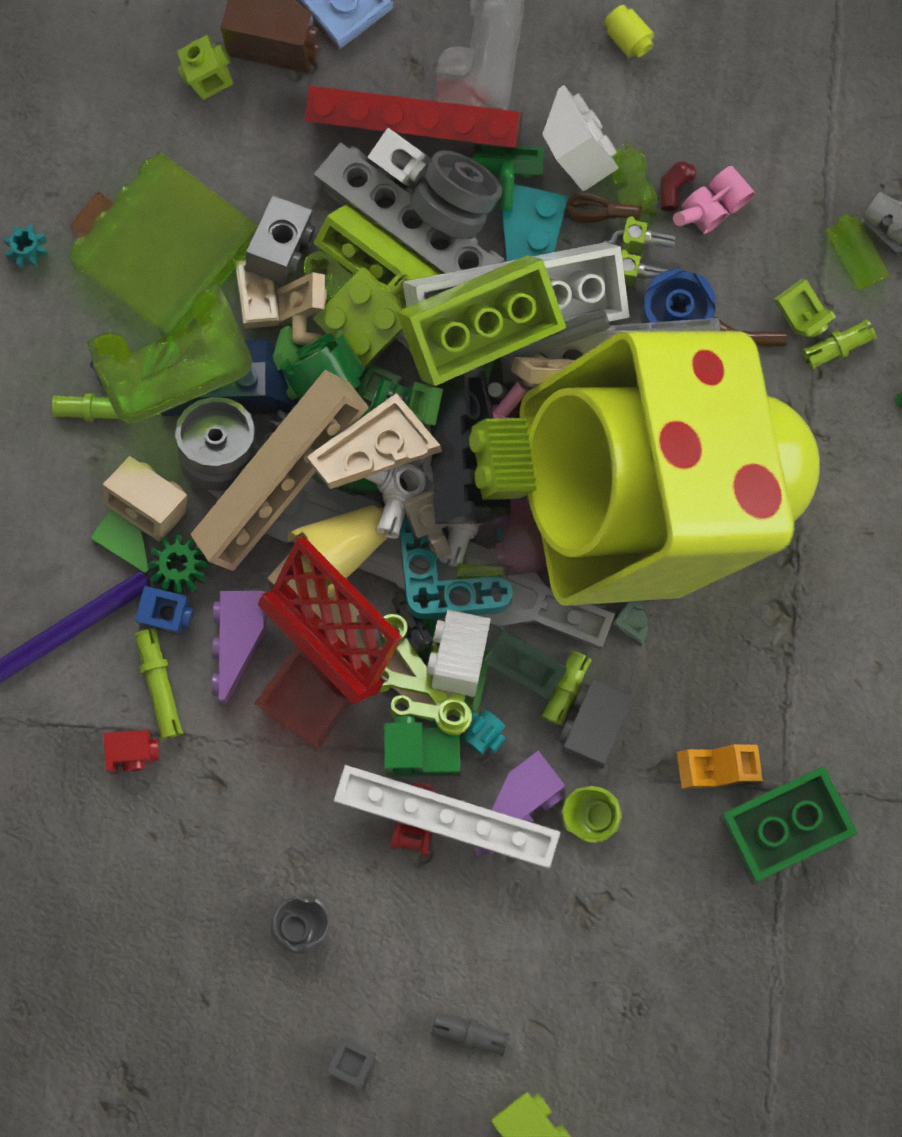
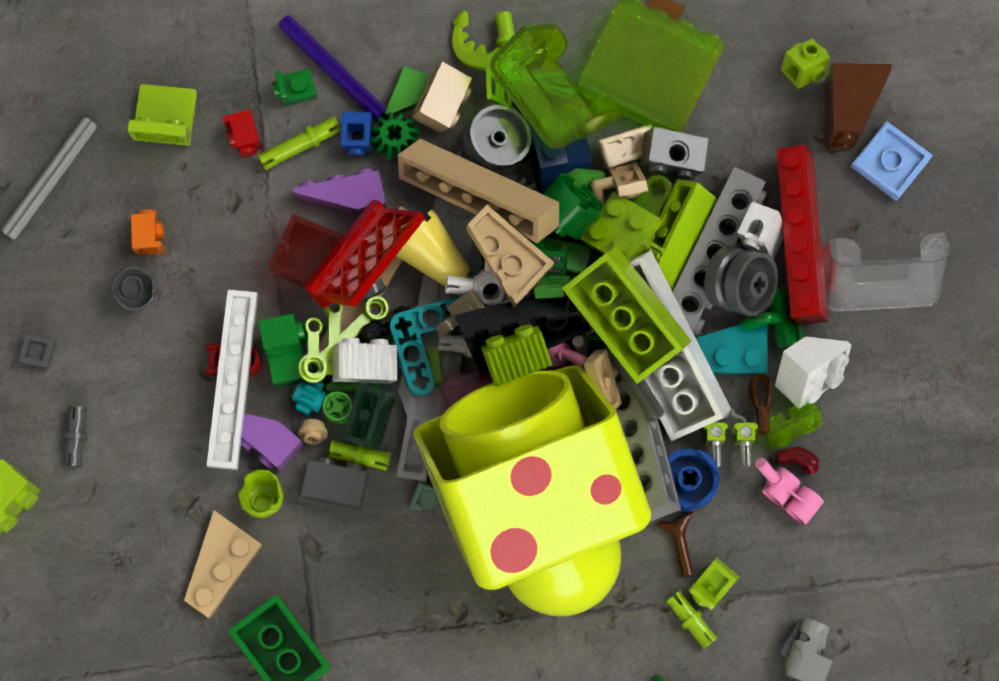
camera: 75 degrees right, 0 degrees up
(81, 845) = (164, 115): none -> lime bracket
(84, 677) = (294, 87): none -> green bracket
(104, 445) = (476, 59): none -> lime piece
(128, 1008) = (49, 178): none -> light grey axle
(230, 894) = (146, 233): none -> orange brick
(507, 696) = (336, 403): none -> bright green wheel
(526, 738) = (312, 431): none -> tan plate
(629, 32) = (920, 394): neon yellow brick -> none
(663, 881) = (220, 564): none -> tan wing
(719, 766) = (320, 588): light orange slope -> none
(856, 252) = (775, 620): clear neon green hinge -> none

